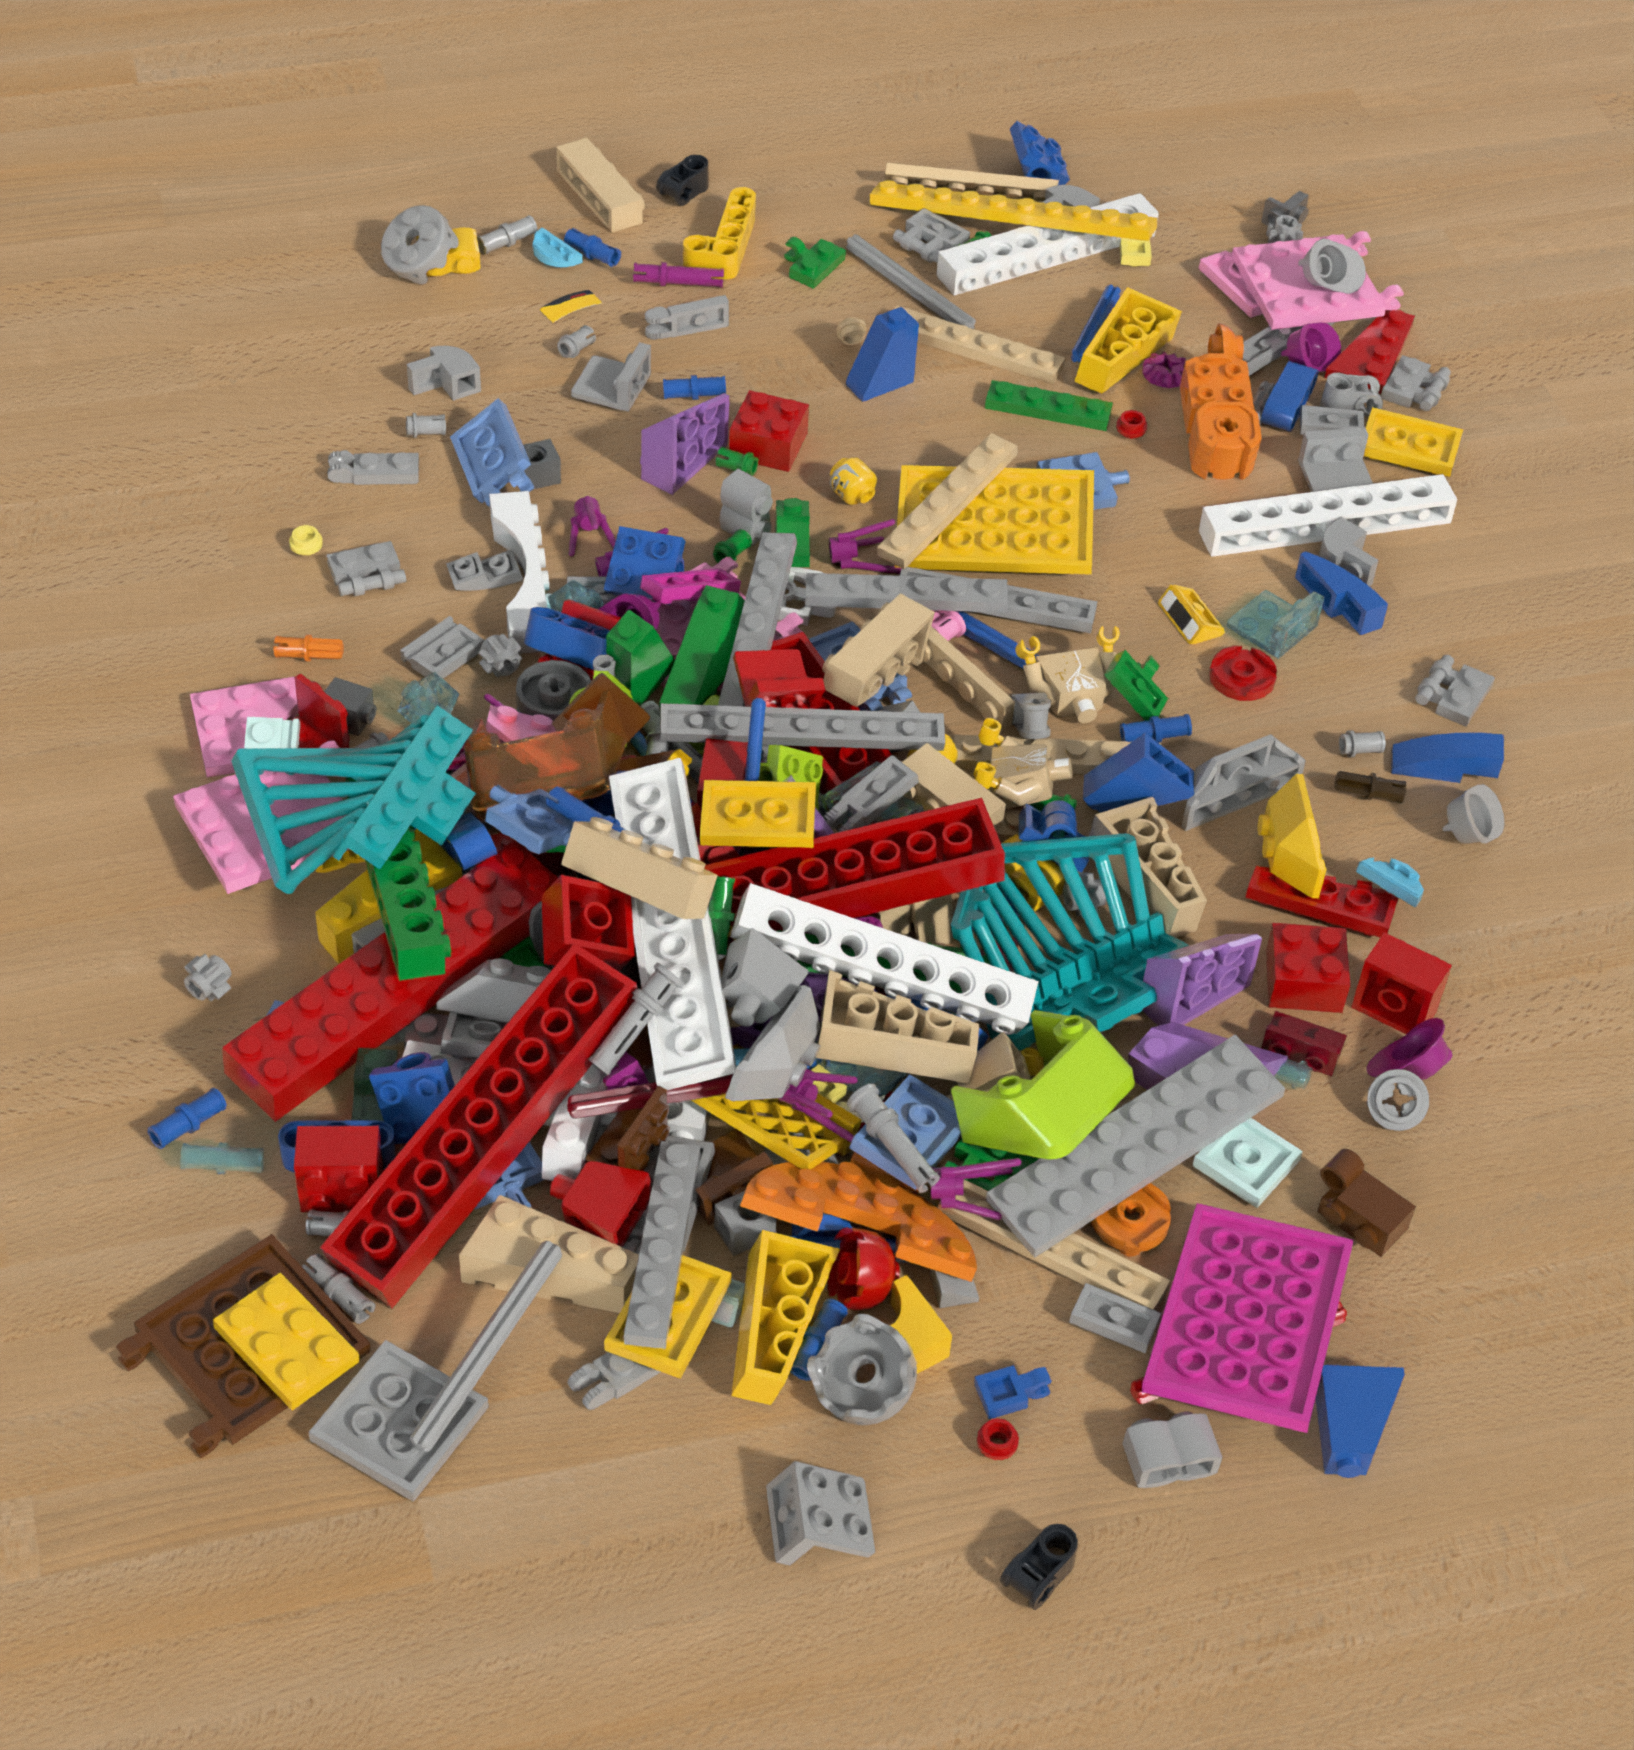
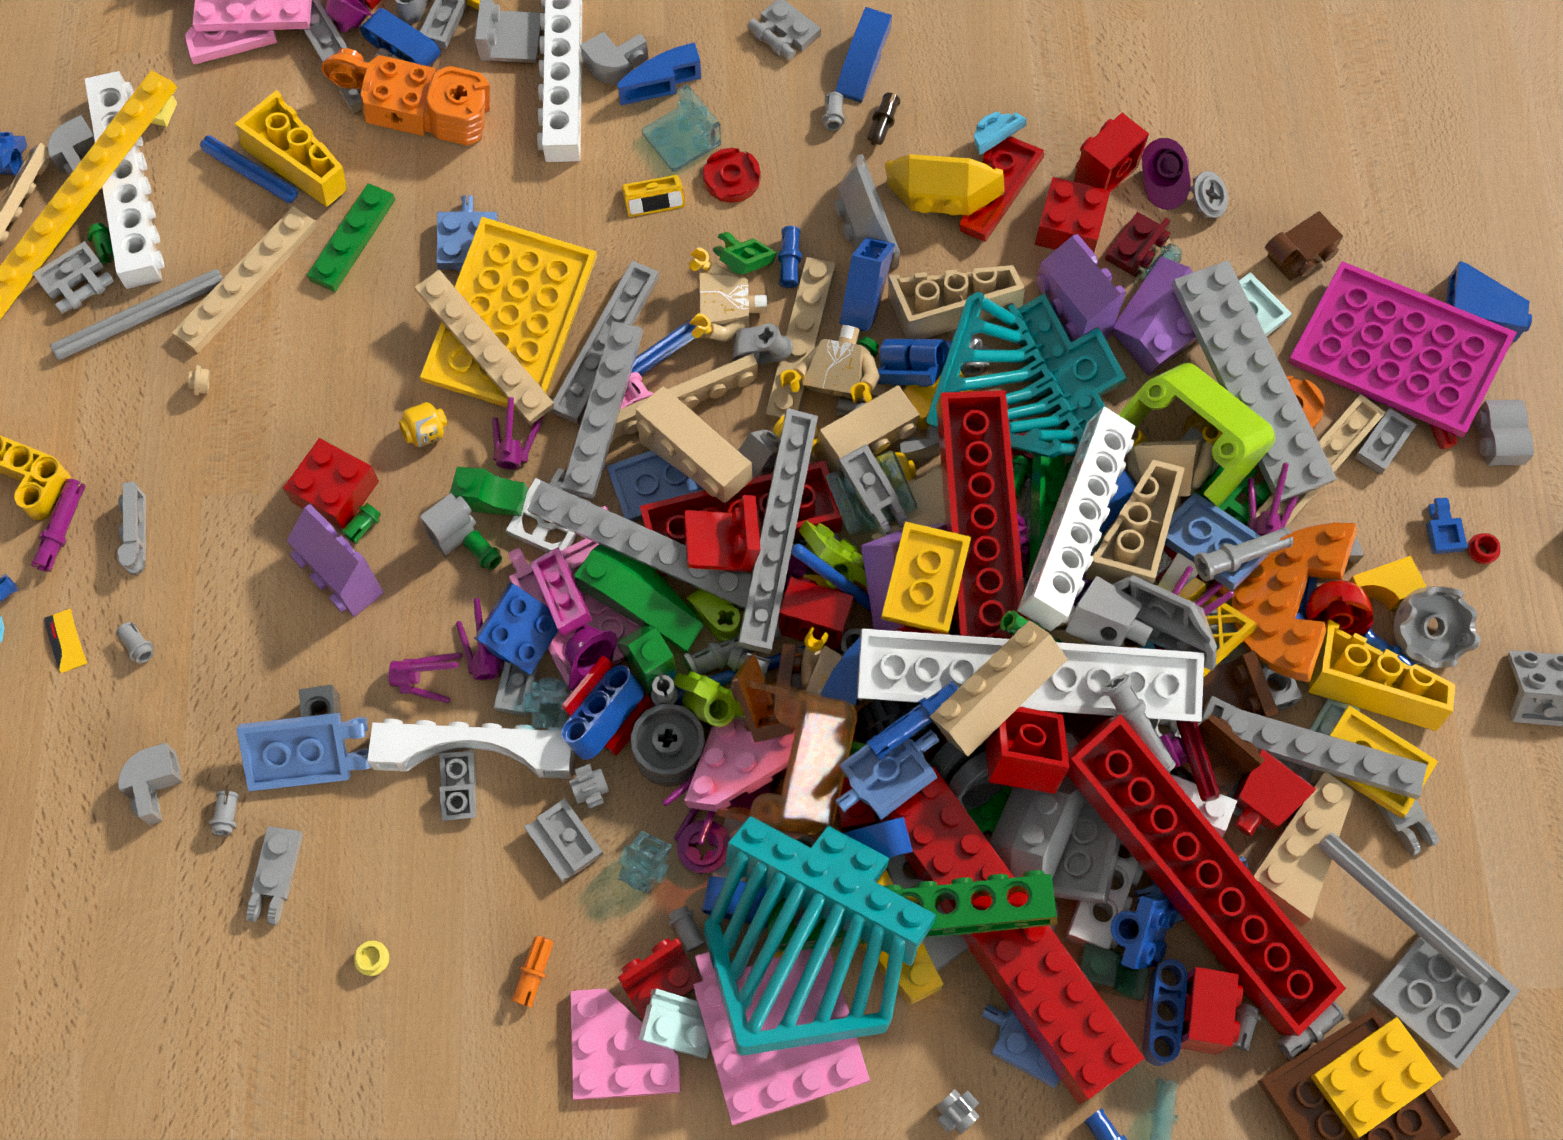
camera: 75 degrees left, 20 degrees up
(357, 701) = (627, 939): dark grey brick -> none
(366, 569) = (416, 901): light grey plate -> none
(614, 382) = (209, 616): light grey bracket -> none
(694, 387) = (241, 541): blue pin -> none
(813, 264) = (74, 391): green plate -> none
(886, 356) = (263, 356): blue slope -> none
(1131, 424) = (397, 170): red plate -> none
(1156, 373) = (339, 135): magenta gear -> none
(1475, 816) = (933, 61): light grey piece -> none

